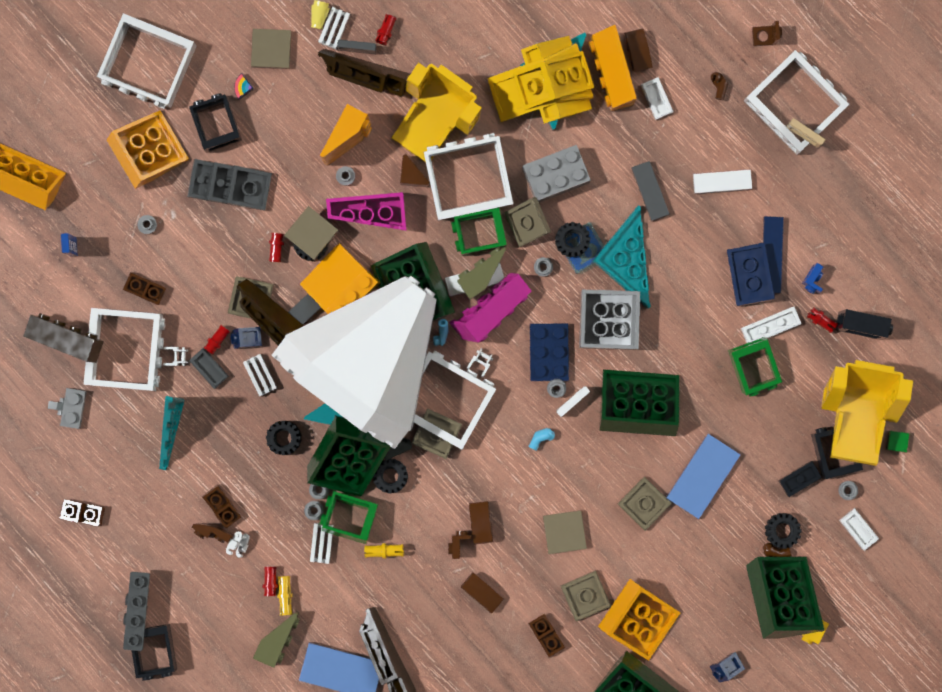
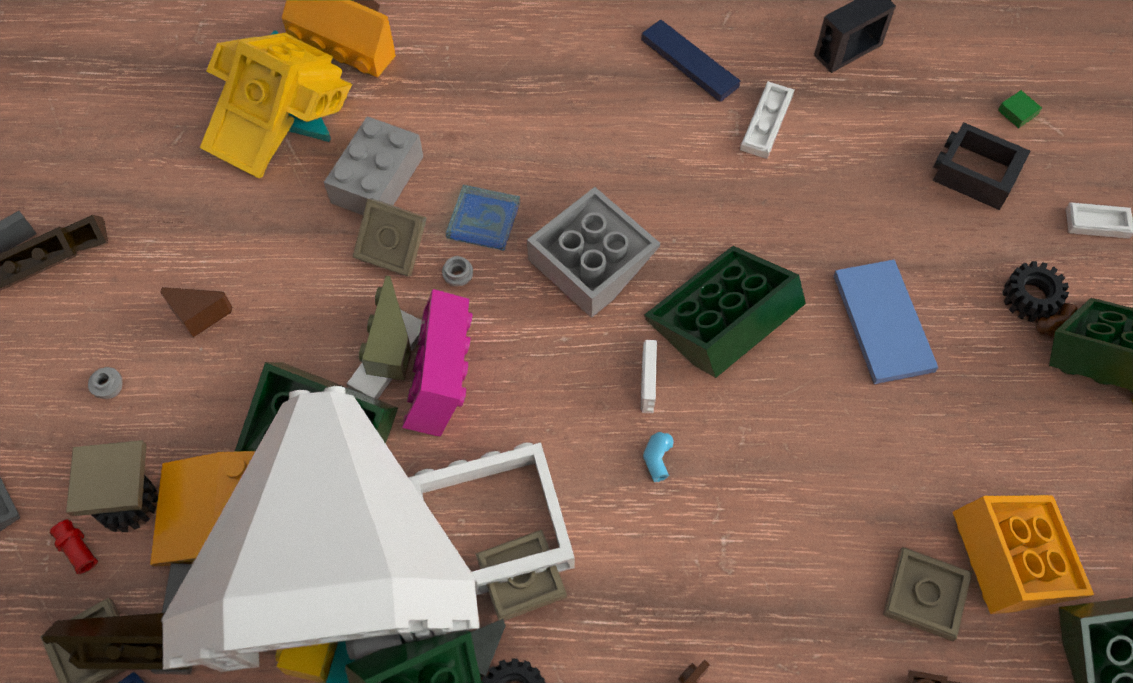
camera: 45 degrees left, 25 degrees down
(347, 133) = (55, 321): light orange slope -> none
(375, 210) = (168, 387): dark pink wedge -> none
(384, 32) = (26, 199): red pin -> none
(441, 106) = (159, 196): yellow piece -> none
(443, 333) = (405, 444): medium azure arm -> none
(469, 143) = (235, 216): white window -> none
(475, 358) = (501, 435): white piece -> none
(481, 522) = (699, 633): reddish brown slope -> none
(495, 213) = (338, 265): green window -> none
(549, 352) = (561, 353): dark blue plate -> none
(556, 393) = (621, 377): light grey plate -> none
(564, 532) = (811, 539): dark tan tile -> none
(572, 228) = (461, 196): black tyre -> none
(625, 257) = (536, 183): teal tile -> none
(644, 503) = (860, 413): dark tan tile -> none
(650, 191) = (498, 107): dark grey tile -> none
(656, 98) = (416, 29): white tile -> none
(722, 181) = (563, 42): white tile -> none
(748, 348) = (792, 178): green window -> none
(751, 274) = (691, 86): dark blue plate -> none
(799, 479) = (982, 226): black plate -> none
(813, 275) = (754, 44): blue bracket -> none
(821, 319) = (809, 69): red pin -> none
(854, 490) = (1040, 192): light grey plate -> none
(863, 401) = (951, 80): yellow piece -> none

